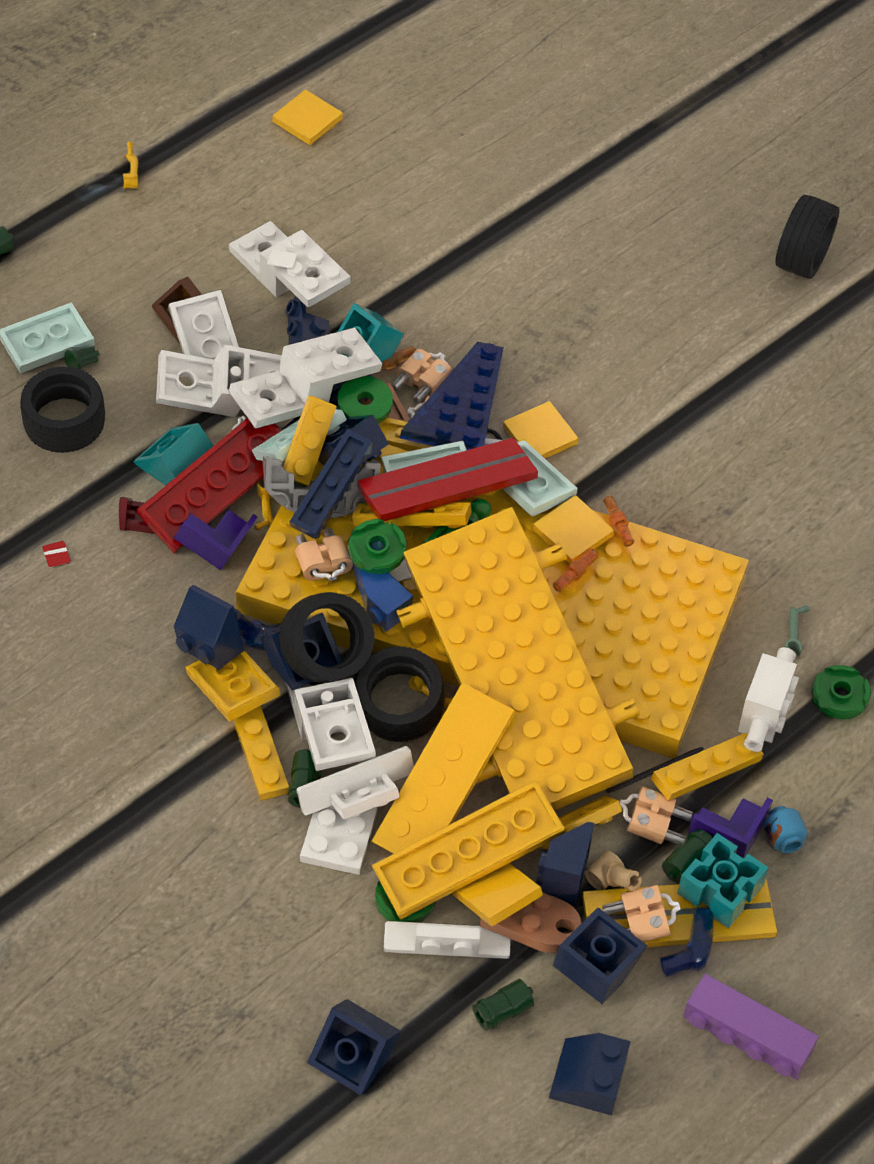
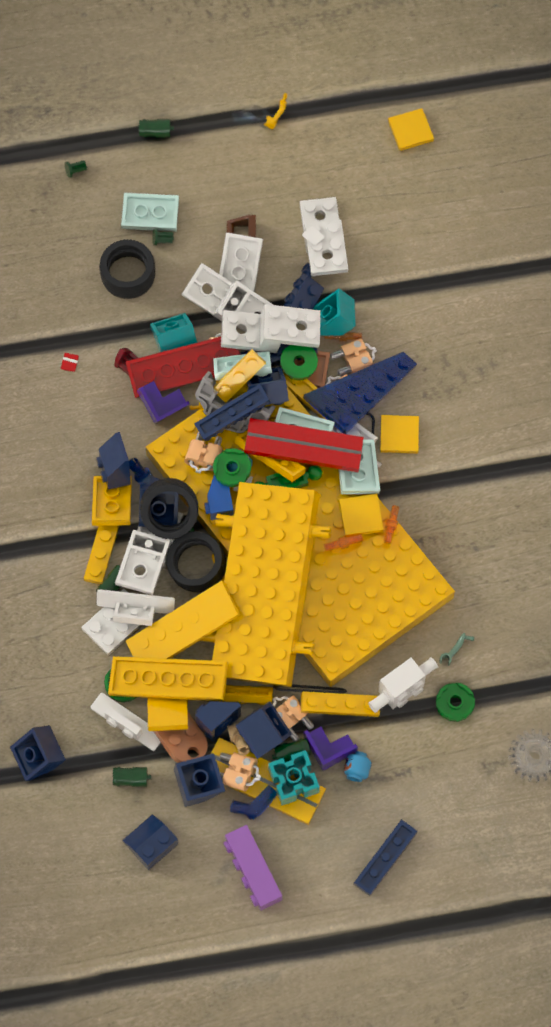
camera: 35 degrees right, 15 degrees up
(640, 843) = (263, 729): none -> dark blue slope

